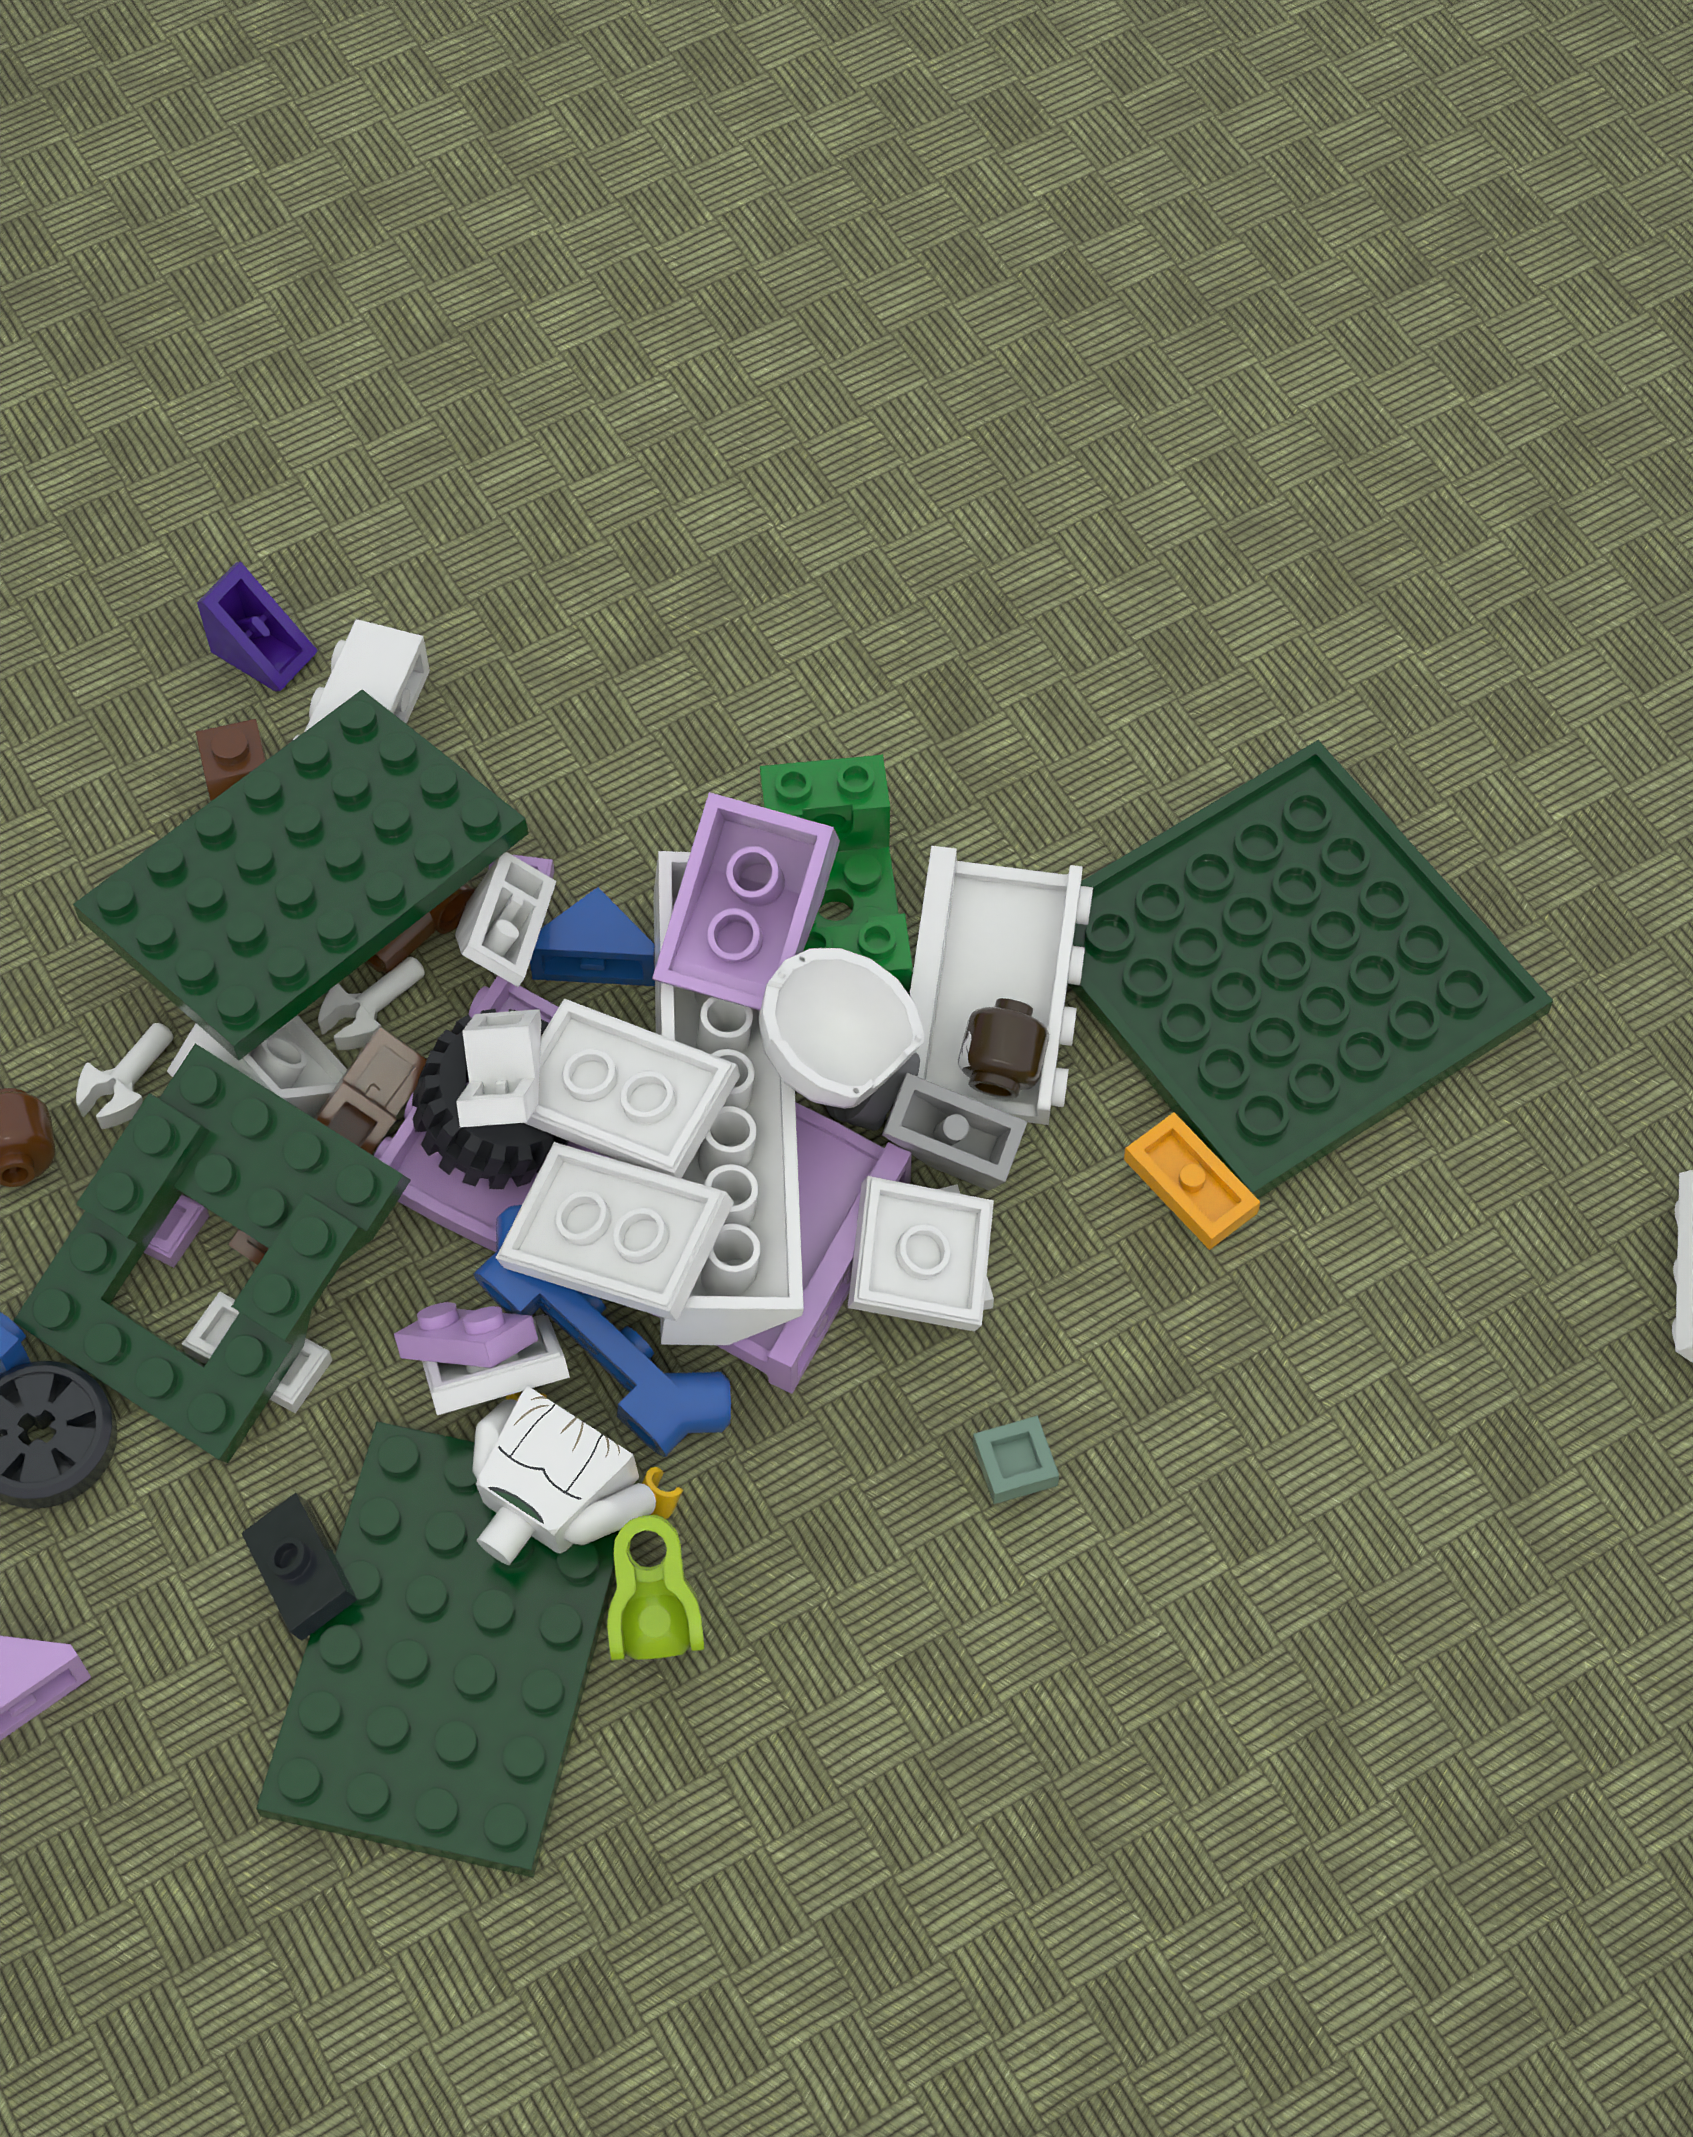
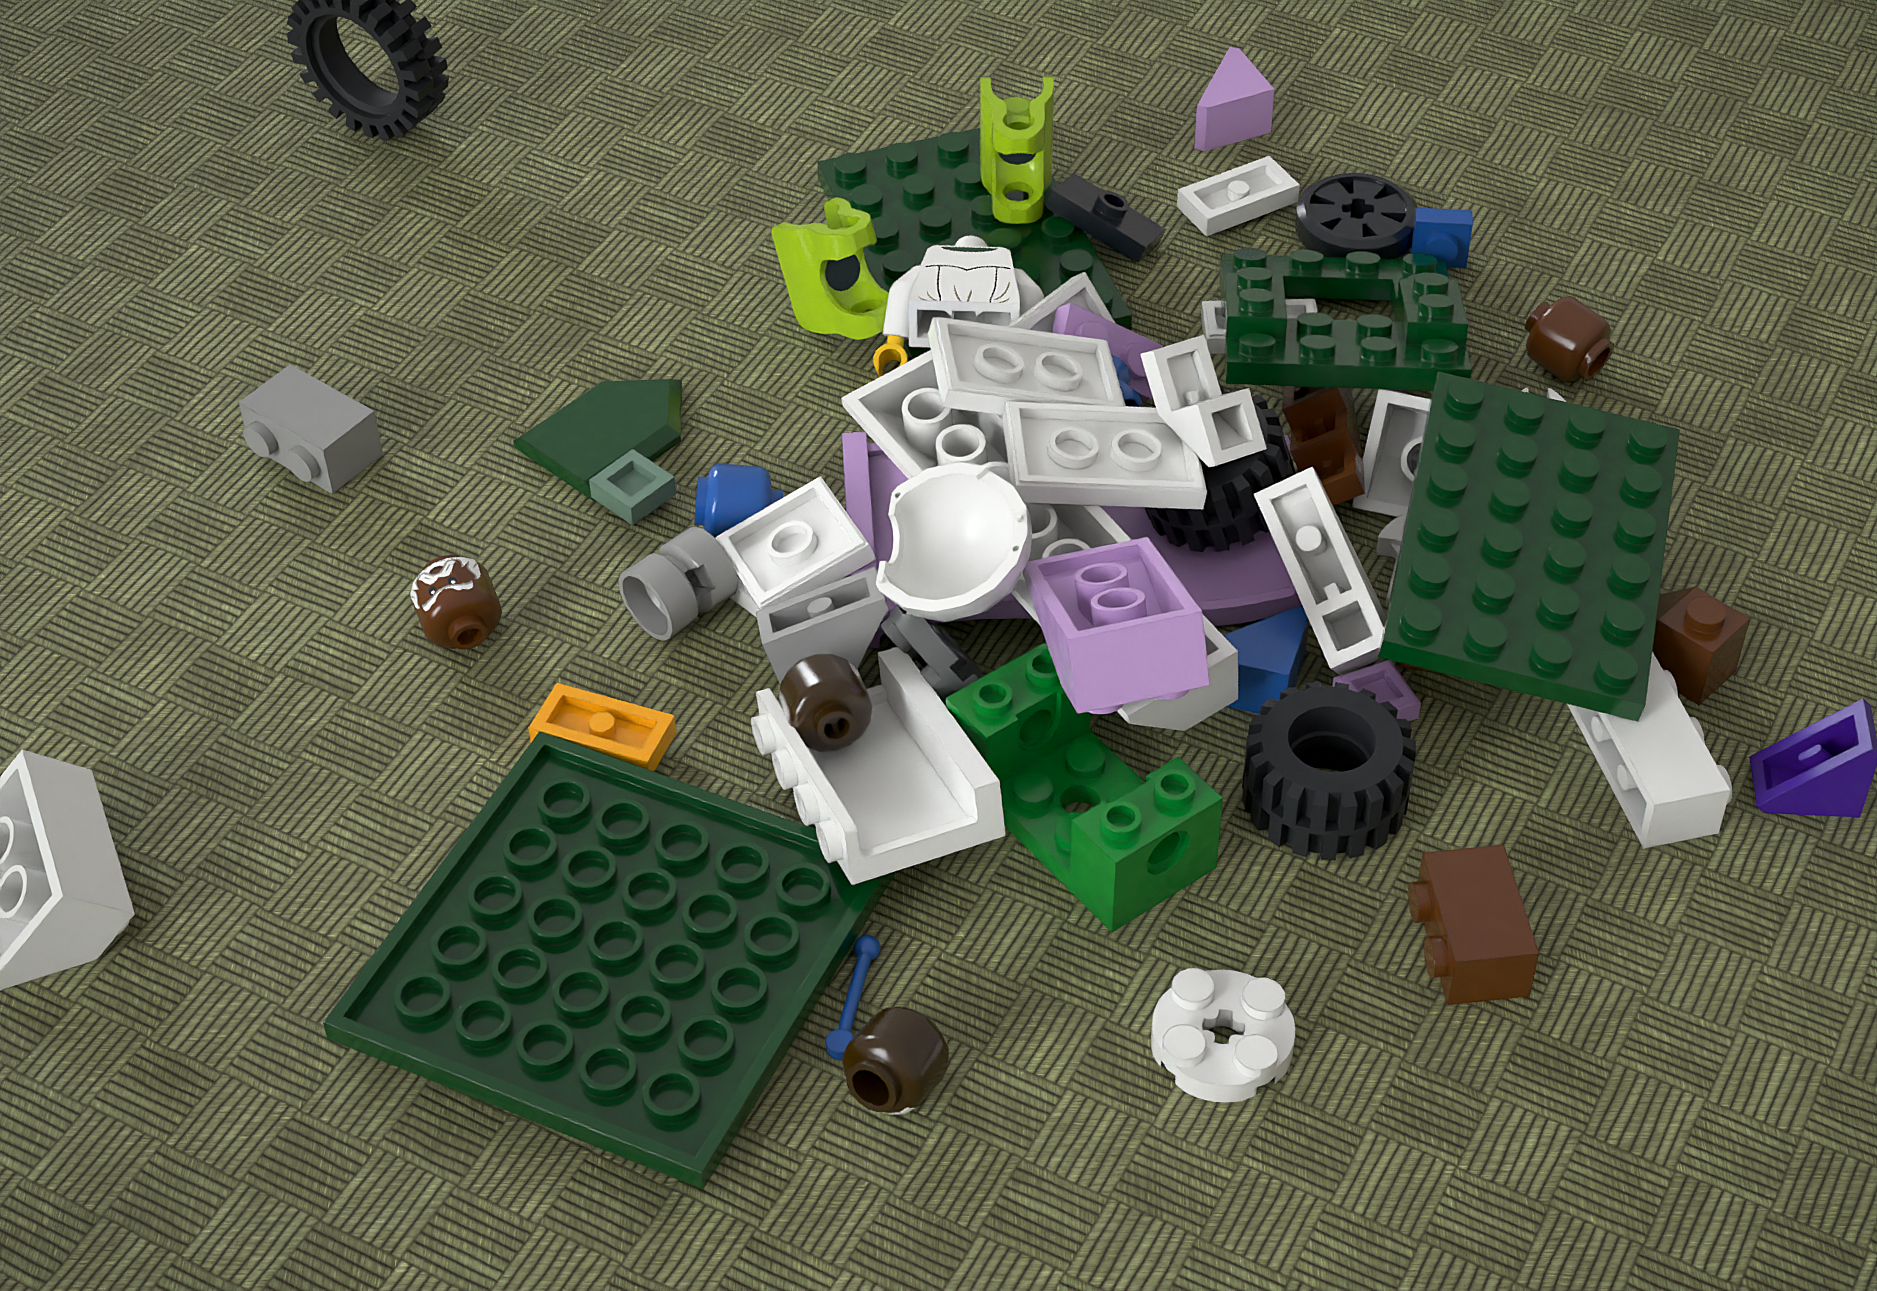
camera: 150 degrees right, 15 degrees down
(128, 1536) = (1237, 195): none -> white plate
(336, 1647) = (1016, 150): none -> lime piece
(616, 770) = (1324, 808): none -> black tyre
(625, 648) = (1474, 925): none -> reddish brown brick
(860, 648) = (1230, 1000): none -> white plate
(933, 1365) = (732, 495): none -> blue head
(994, 1574) = (604, 427): none -> dark green tile
(1052, 1290) = (677, 583): none -> light grey wheel
(1125, 757) = (895, 1061): none -> dark brown head
(1148, 819) = (866, 949): none -> blue hinge
(1261, 1384) = (454, 600): none -> reddish brown head
(1310, 1720) = (310, 429): none -> light grey brick

